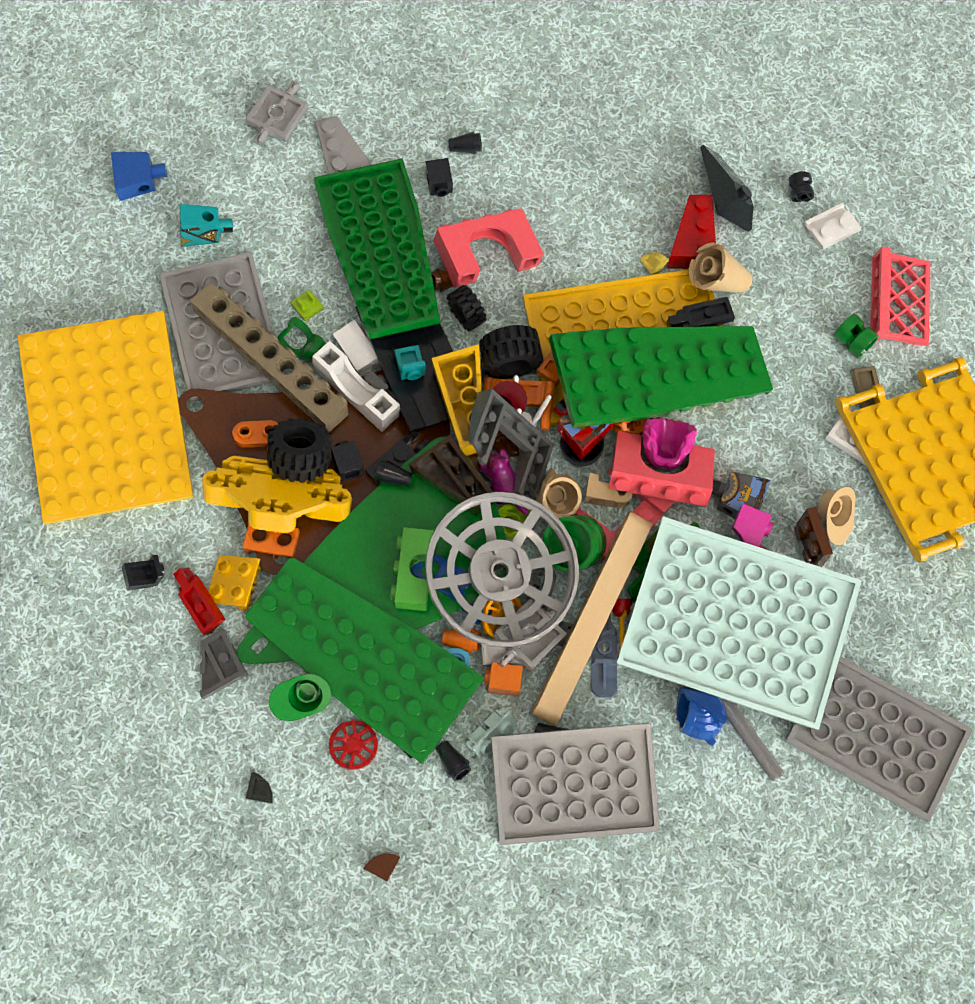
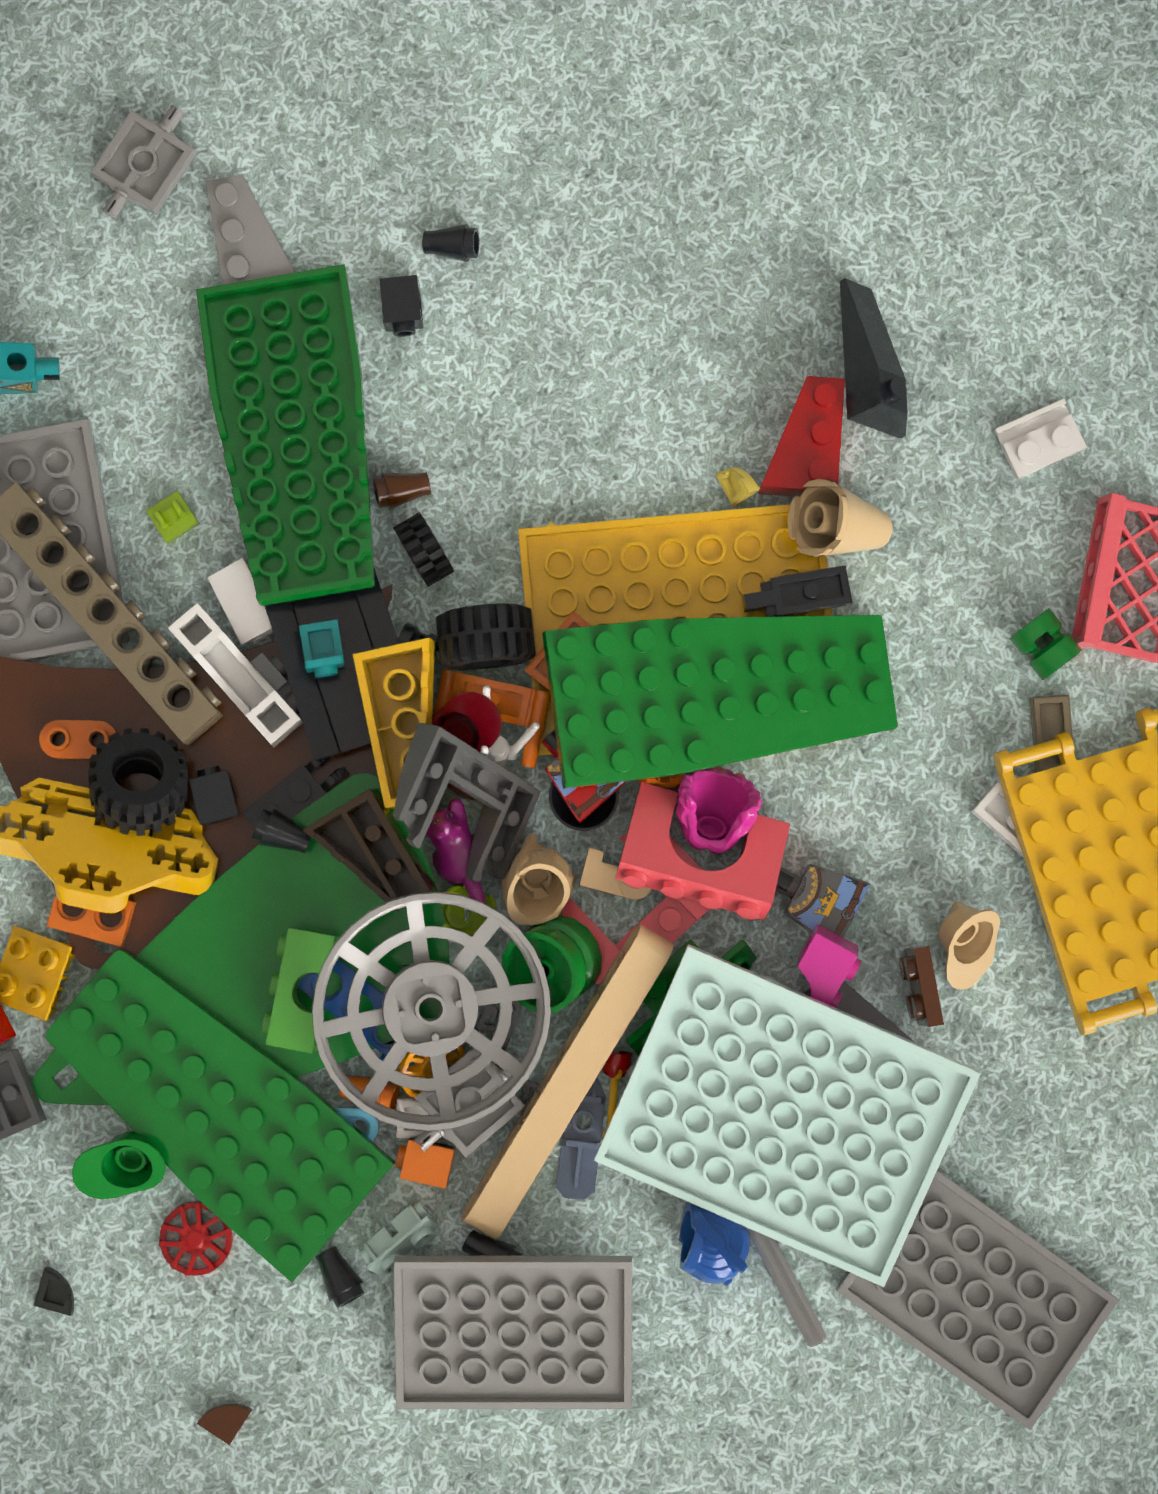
camera: 10 degrees right, 15 degrees up
(312, 345) = (174, 597): green piece -> none
(507, 228) = (505, 408): coral arch -> none
(801, 186) = (998, 366): black wheel -> none

